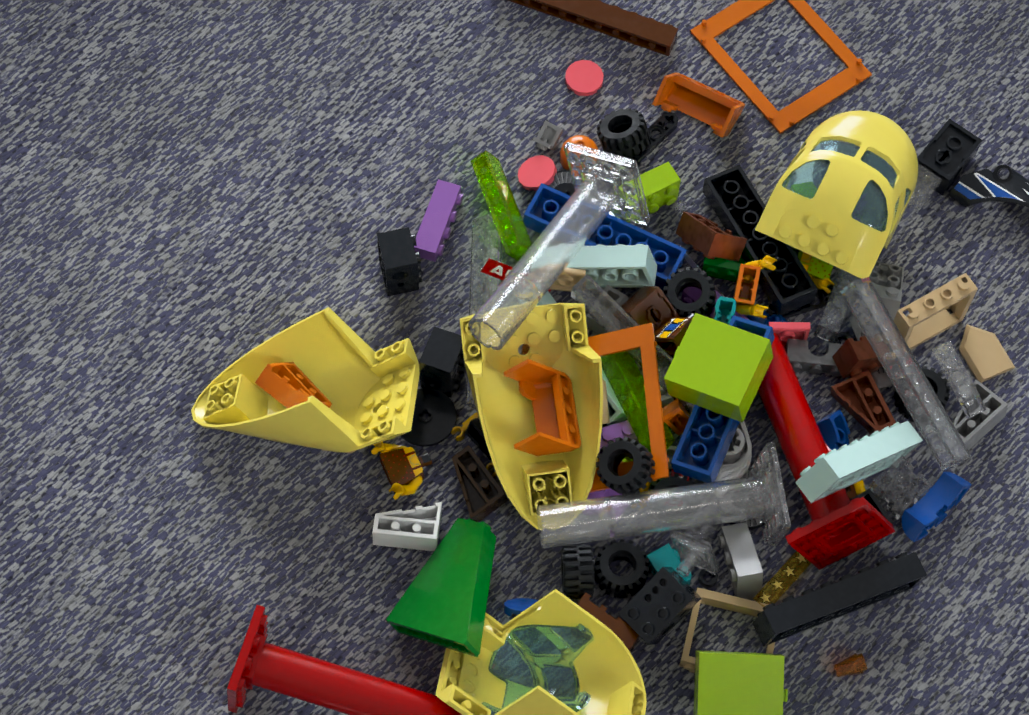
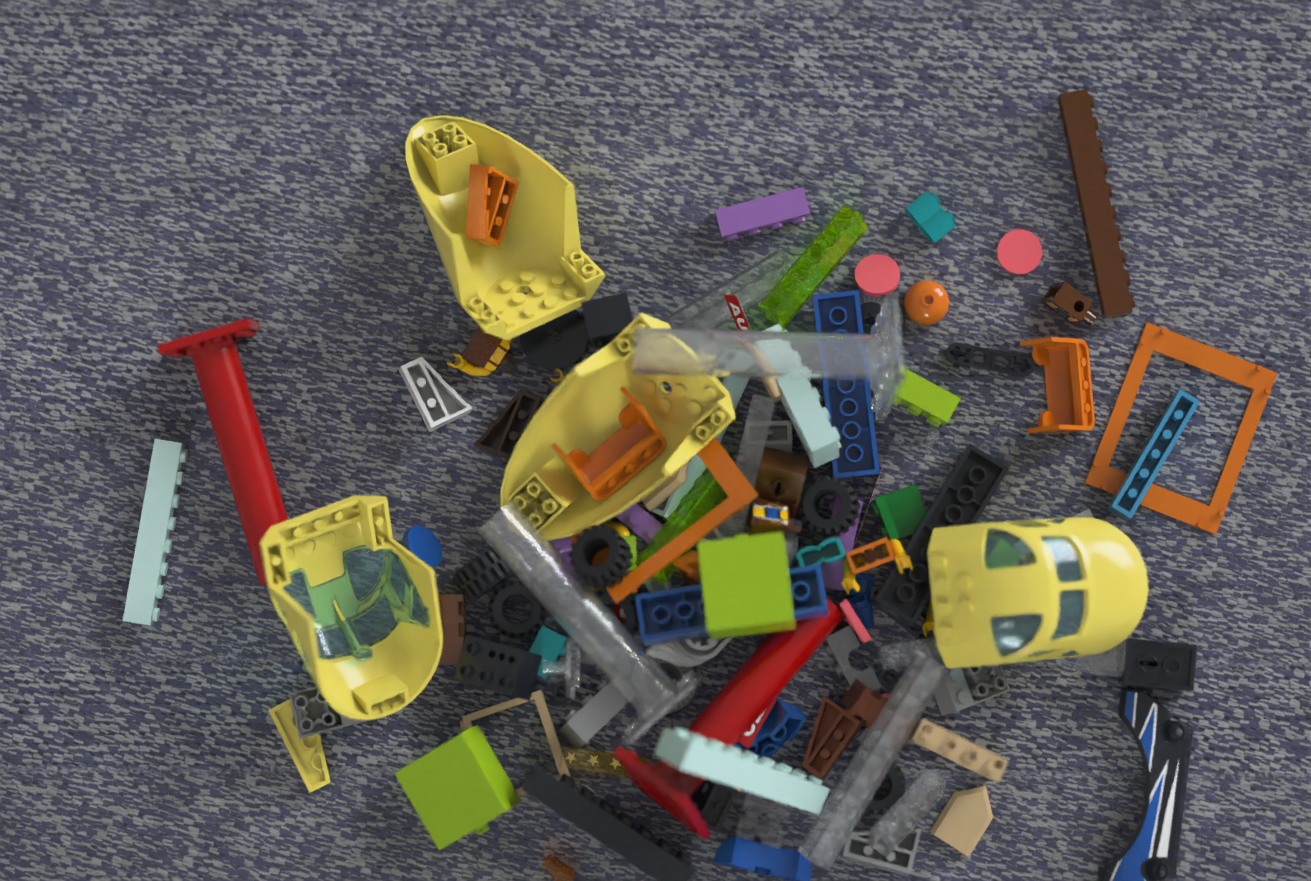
camera: 60 degrees right, 20 degrees up
(399, 261) = (685, 209): black piece -> none
(450, 591) = (389, 471): green slope -> none
(519, 116) = (930, 217): none -> teal brick
(548, 136) = (925, 259): light grey bracket -> none
(623, 133) = (978, 318): black tyre -> none
(643, 64) = (1063, 298): none -> reddish brown torso
(709, 238) = (906, 486): copper wedge -> none
(790, 74) = (1153, 455): none -> dark azure brick

